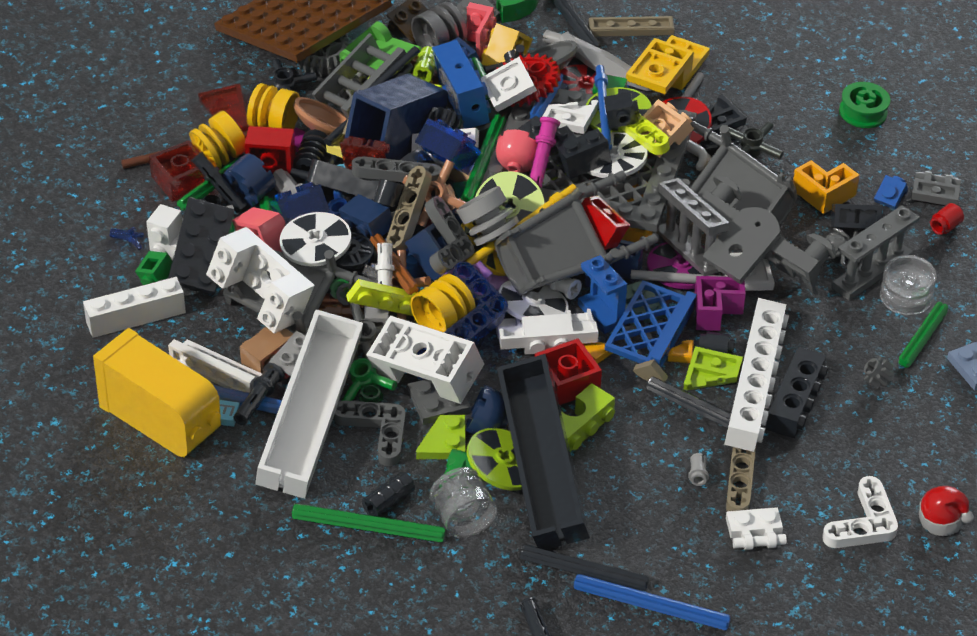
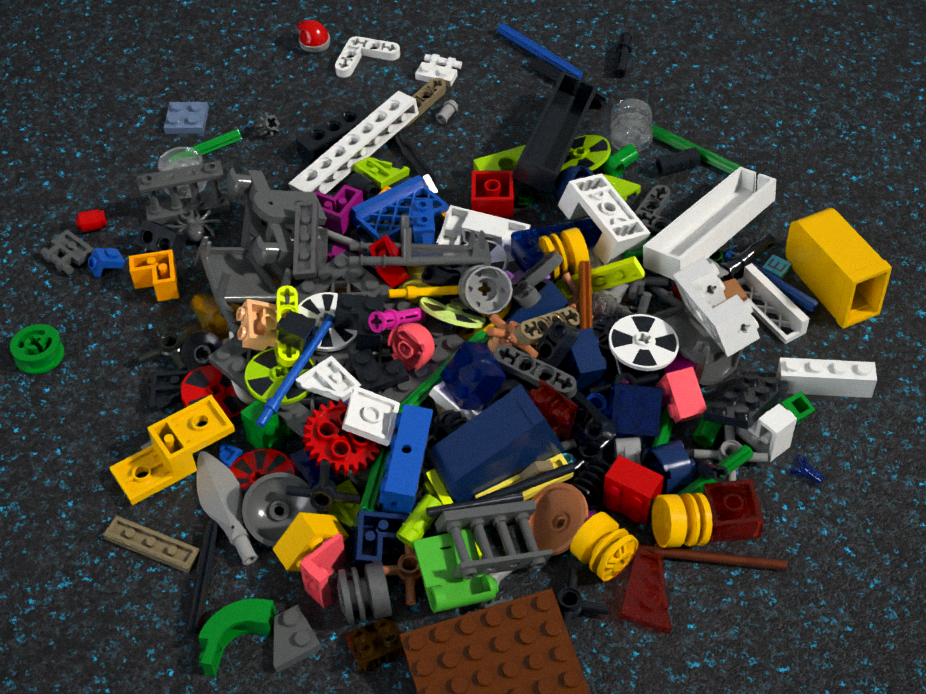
camera: 150 degrees left, 5 degrees up
(384, 263) = (598, 286): white pin -> none

